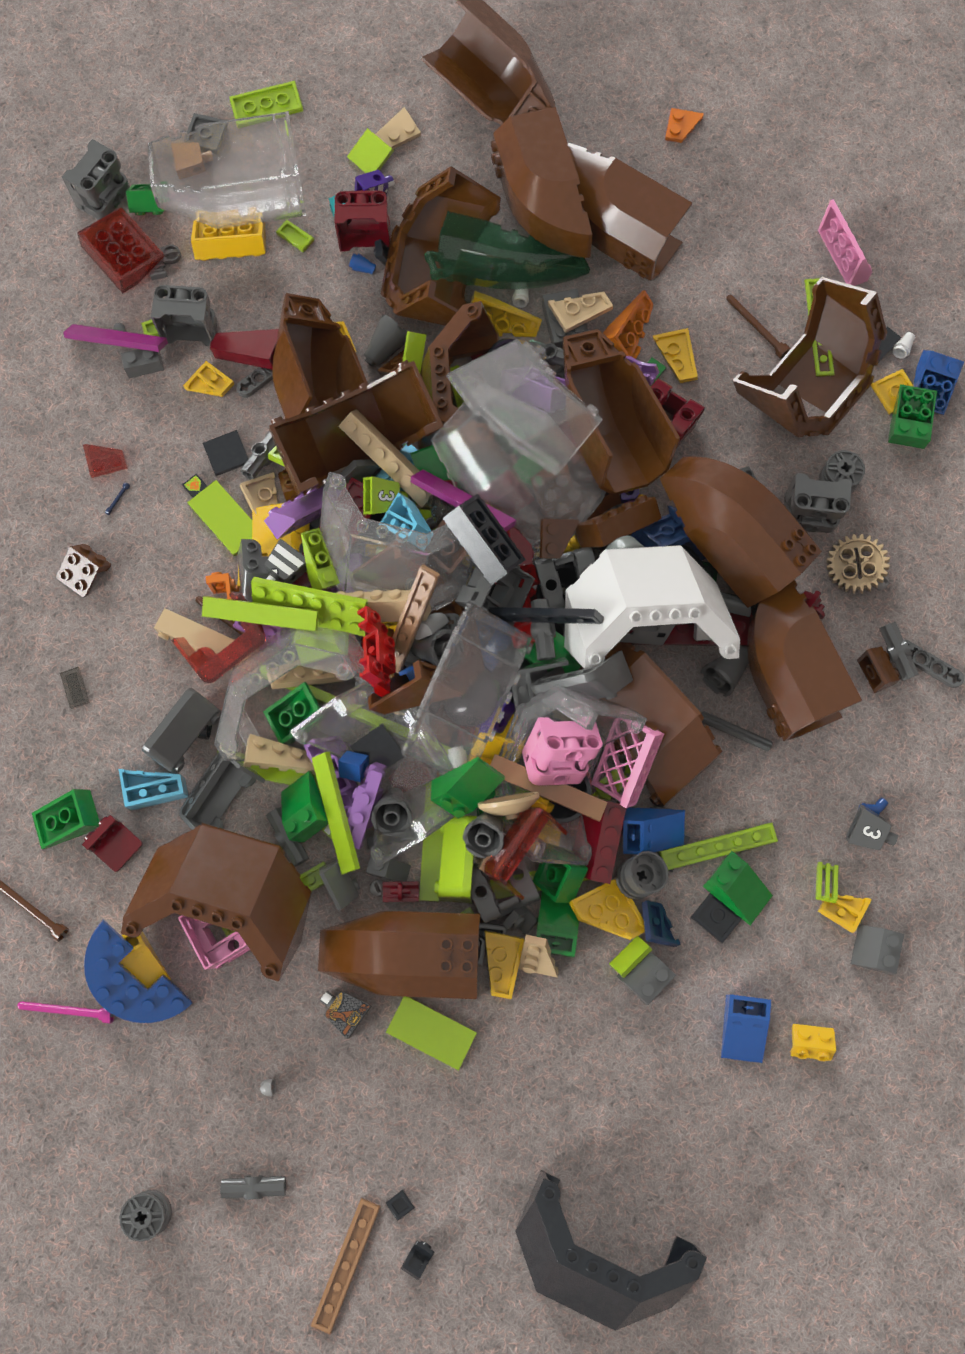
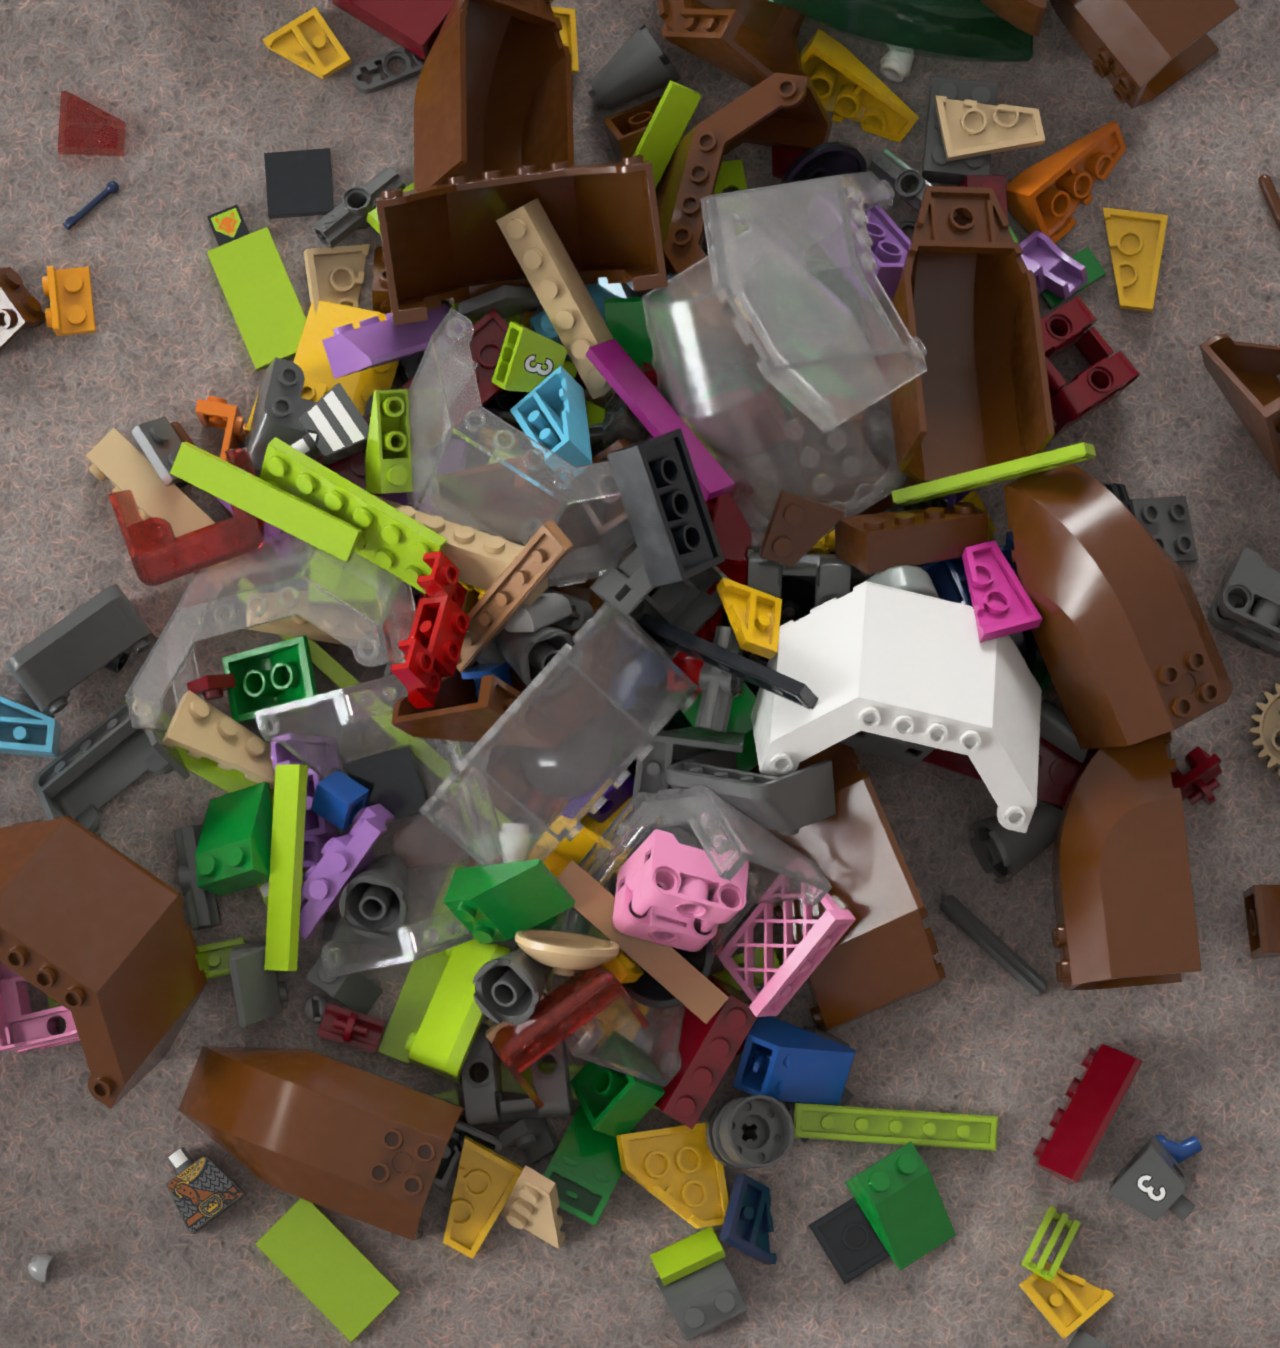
camera: 15 degrees right, 5 degrees up
(121, 551) = (70, 301): none -> light orange bracket
(192, 609) = (161, 447): none -> dark grey bracket
(262, 727) = (212, 685): none -> dark red plate
(548, 589) = (752, 616): none -> yellow wing
(652, 474) = (994, 474): none -> lime tile
(676, 535) = (997, 594): none -> dark pink wing
(821, 804) = (1087, 1113): none -> dark red slope

